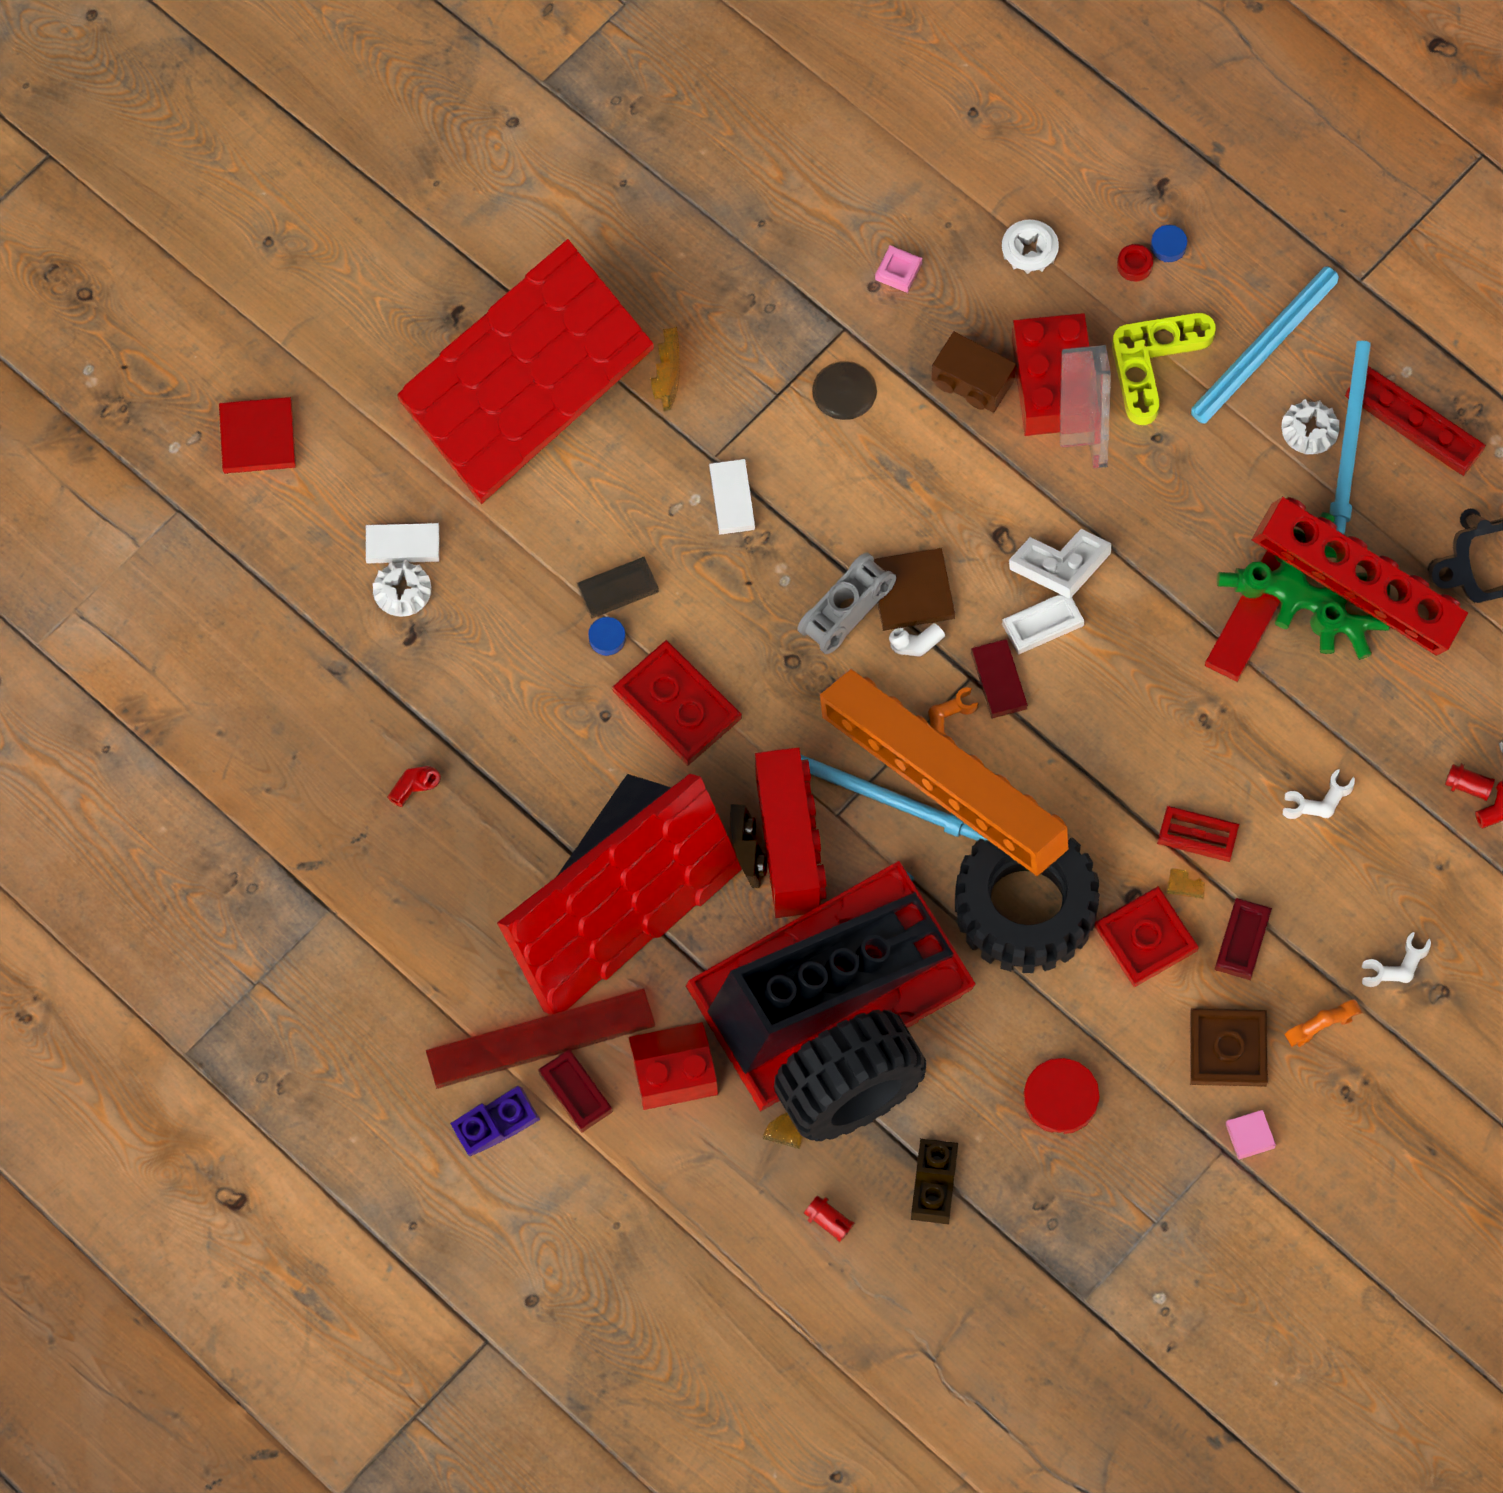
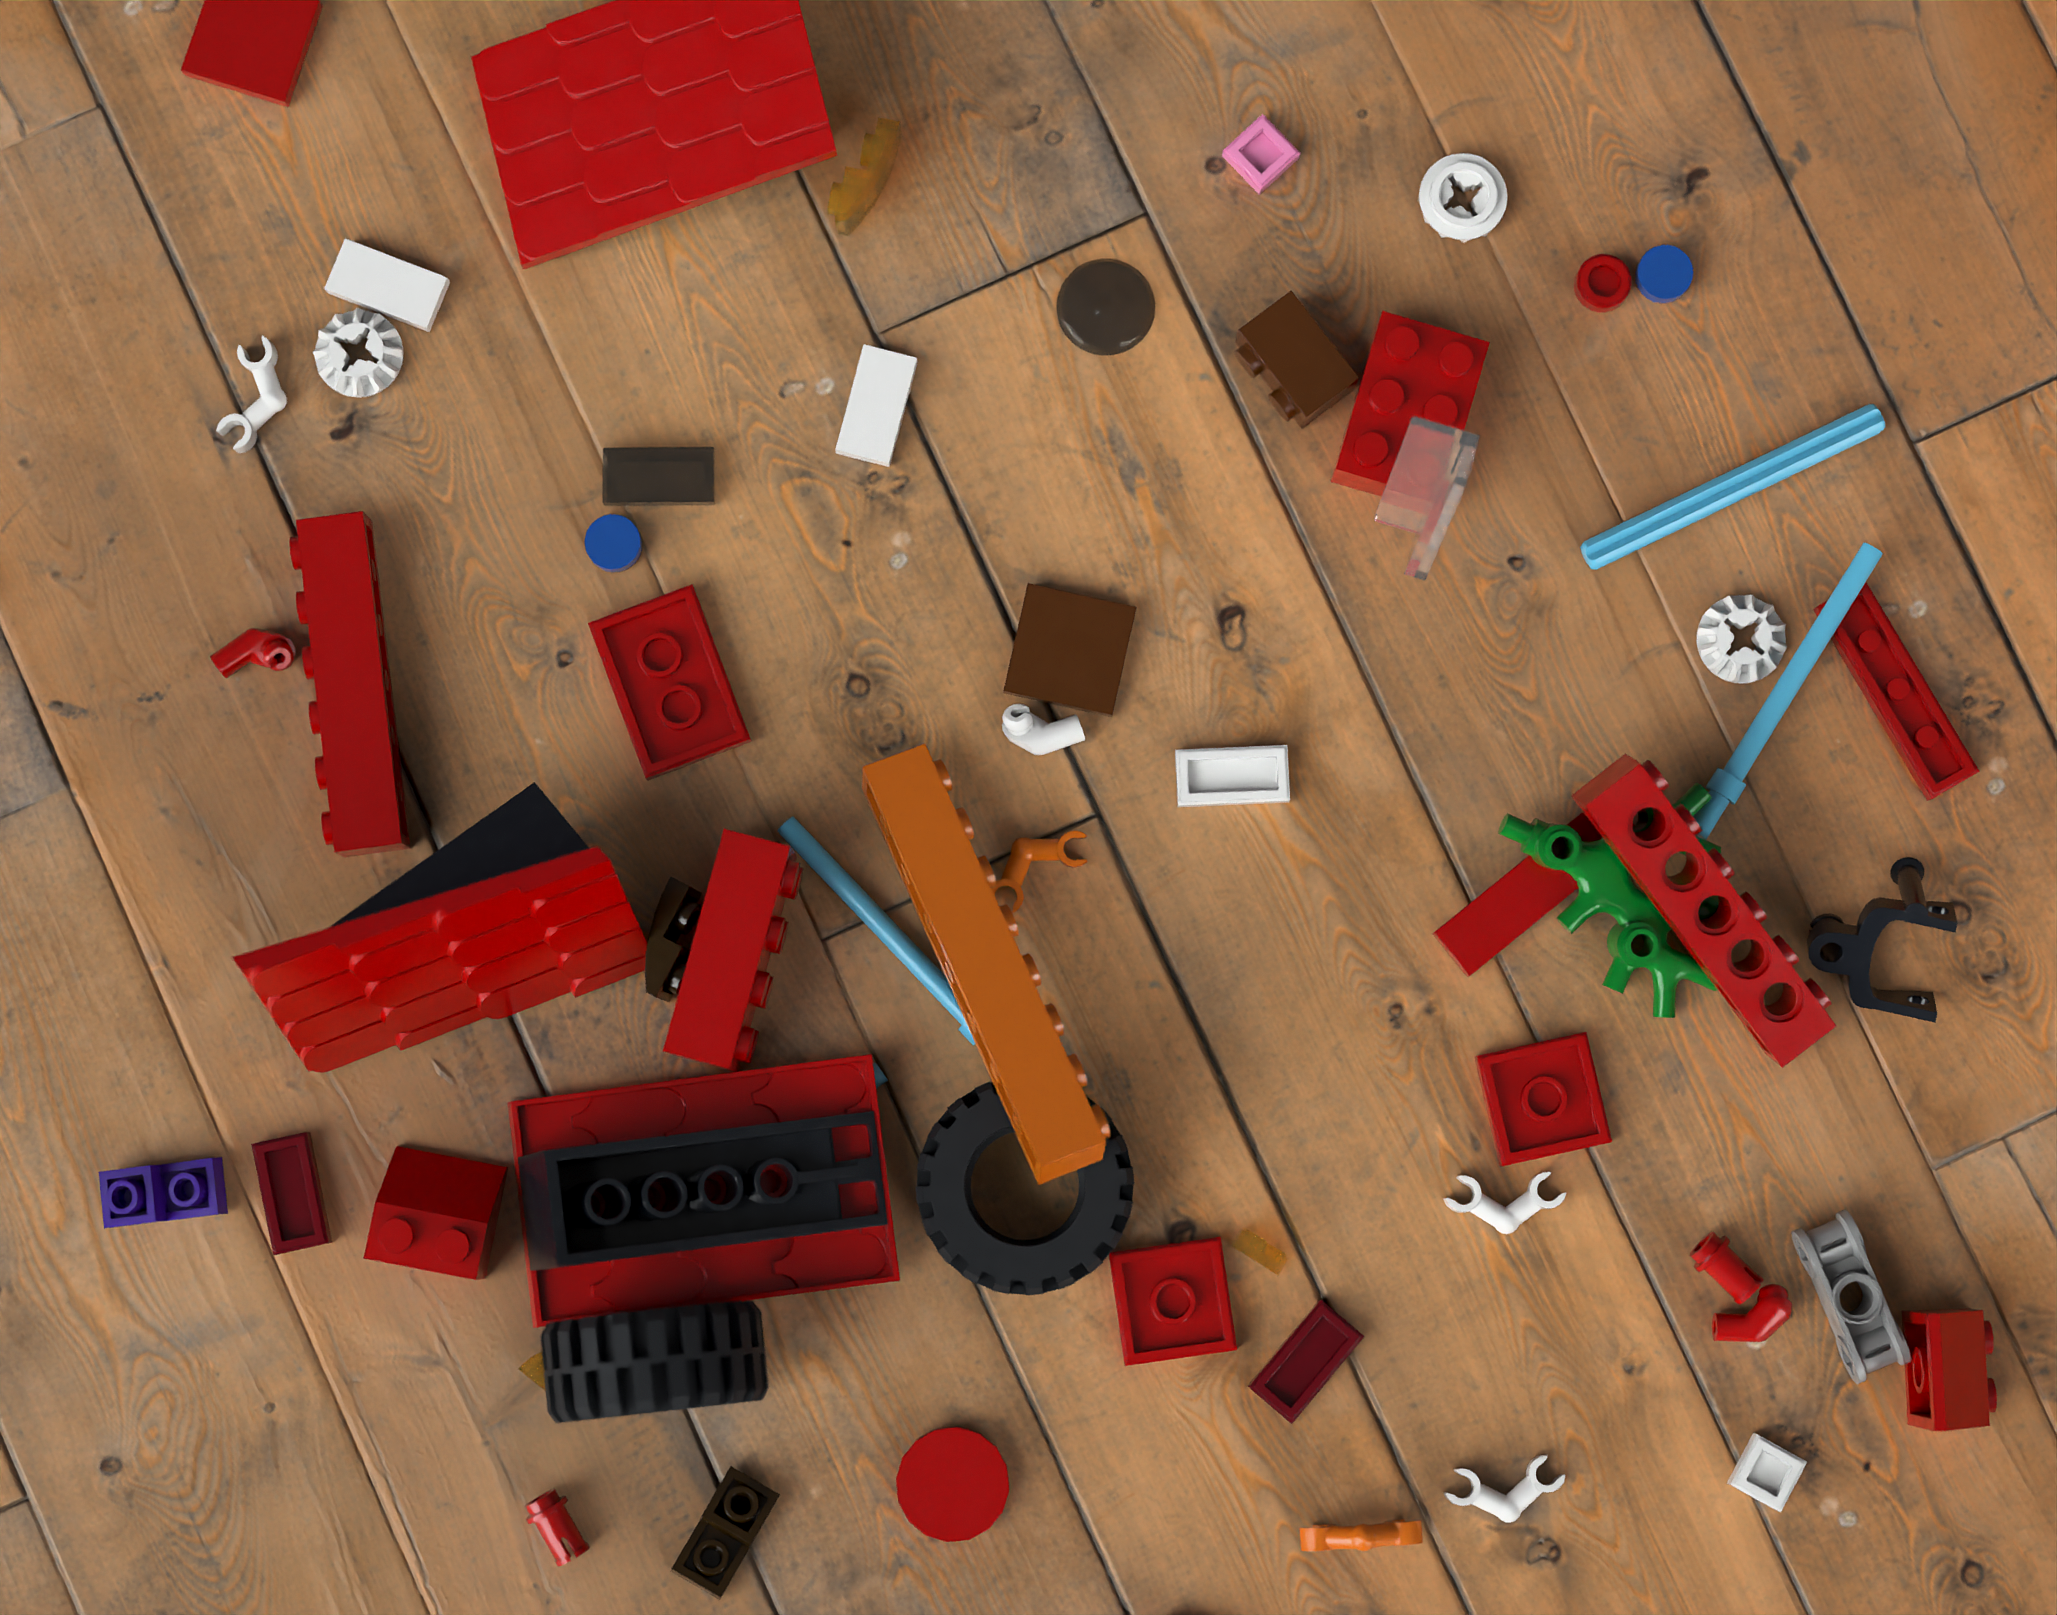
camera: 20 degrees right, 15 degrees up
(359, 634) = (271, 398): none -> white arm
(484, 777) = (351, 684): none -> red brick
(540, 1038) = (275, 1097): clear red tile -> none
(838, 621) = (926, 653): light grey piece -> none
(999, 678) = (1133, 834): dark red tile -> none
(1064, 569) = (1291, 714): white plate -> none
(1140, 356) = (1546, 429): neon yellow beam -> none
(1195, 846) = (1273, 1151): red tile -> none
(1228, 1047) = (1215, 1510): reddish brown tile -> none
(1315, 732) = (1543, 1099): none -> red tile

